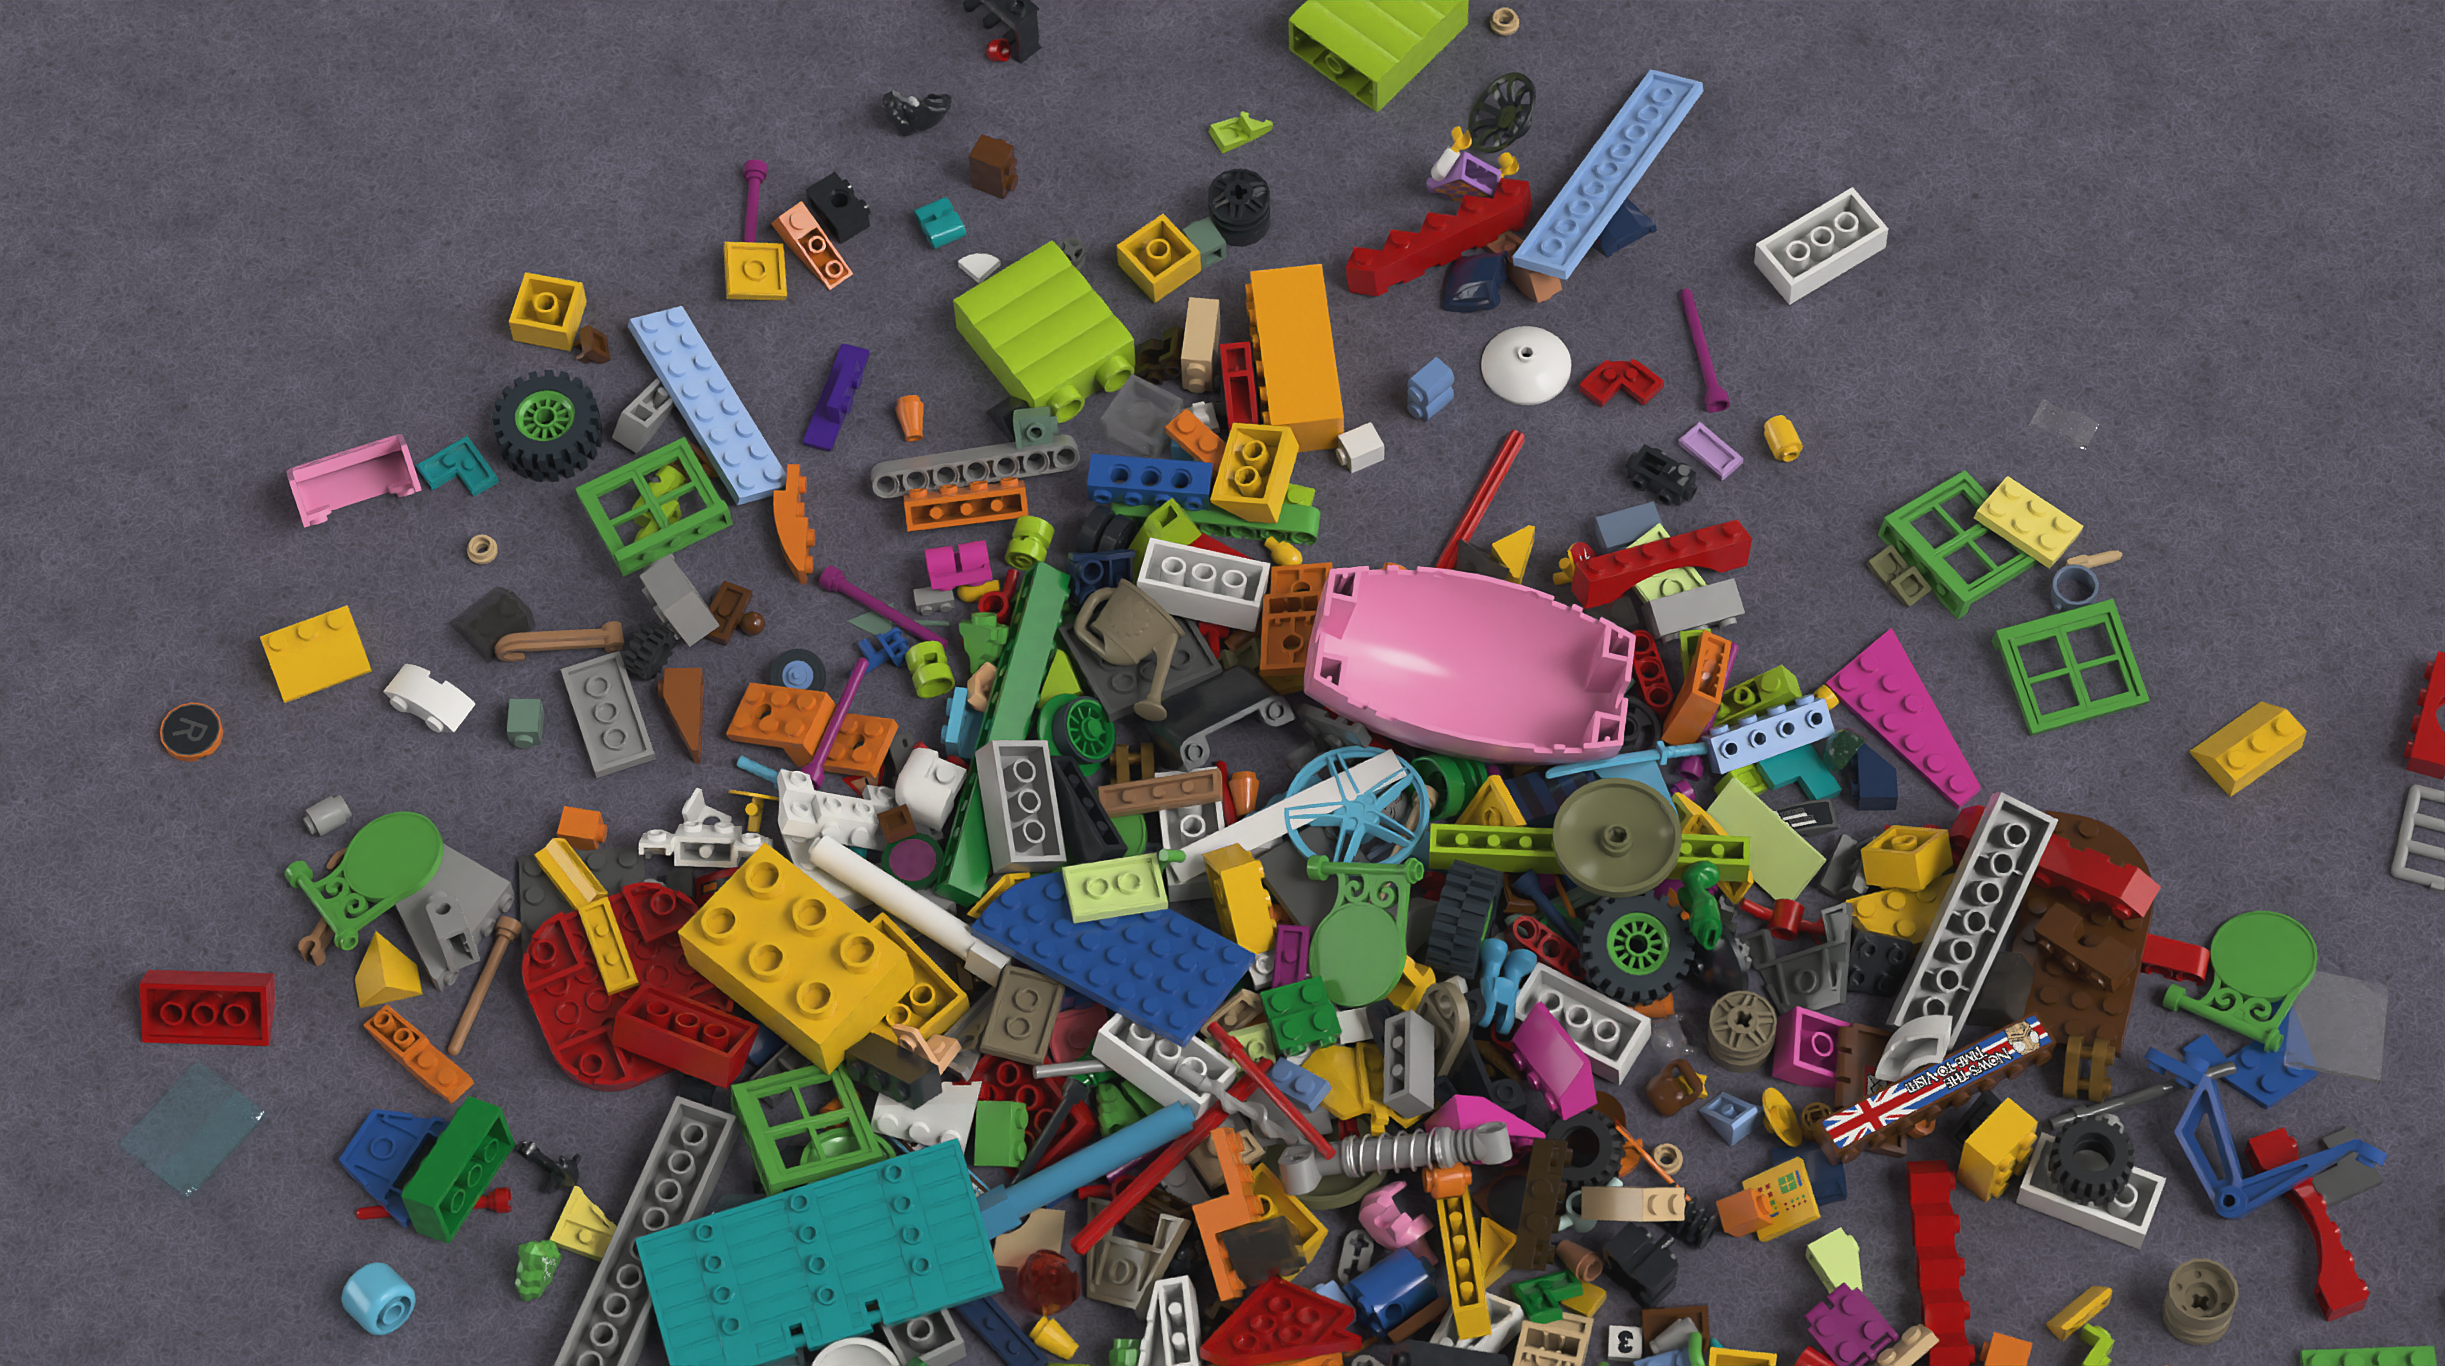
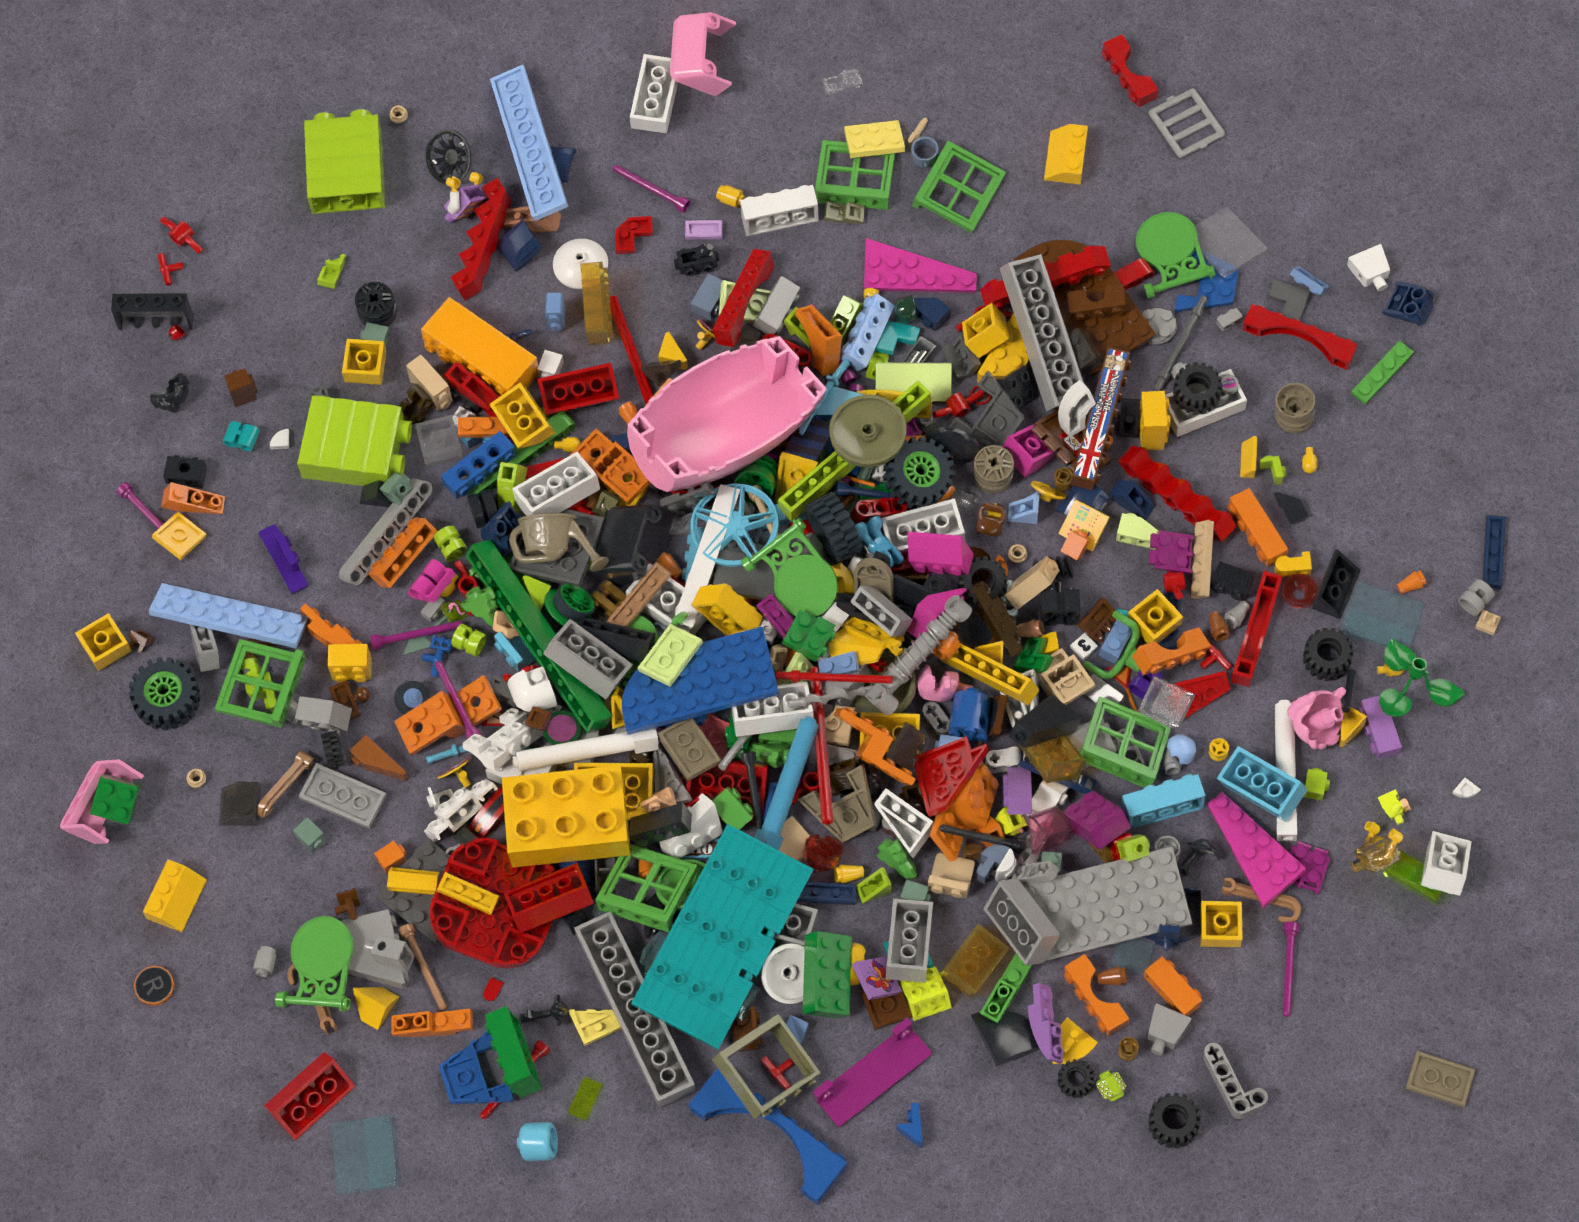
camera: 45 degrees left, 5 degrees up
(369, 490) = (115, 799): none -> green brick
(436, 703) = (244, 868): white brick -> none
(458, 460) = (140, 746): teal tile -> none
(483, 833) = (348, 901): none -> reddish brown arm
(485, 1304) = (585, 1099): none -> clear neon green tile
(526, 1083) = (492, 989): none -> red piece
(536, 1268) = (593, 1061): bright green rock -> none
(772, 572) = (349, 662): none -> yellow brick
(910, 415) = (329, 536): orange cone -> none
(948, 622) = (453, 611): none -> clear neon green tile
(1356, 380) = (520, 335): none -> dark blue bar
(1360, 499) = (578, 388): none -> red slope
(1483, 420) = (596, 303): none -> clear yellow brick
(1645, 1155) = (1010, 559): orange piece -> none
(1674, 1337) = (1105, 624): light grey cone -> none
(1699, 903) = (935, 428): green piece -> none
(1817, 502) = (779, 210): none -> white brick
(1876, 1225) = (1132, 498): none -> dark blue slope
(1888, 239) = (689, 48): none -> bright pink windscreen
(2098, 1084) = (1159, 355): pearl gold brick -> none
(2139, 1037) = (1162, 323): none -> light grey piece
(2140, 1193) = (1229, 384): none -> light grey tile
(2242, 1123) = (1229, 319): none -> light grey piece
(2255, 1190) = (1266, 344): blue piece -> none
(2396, 1171) = (1303, 277): none -> medium blue plate

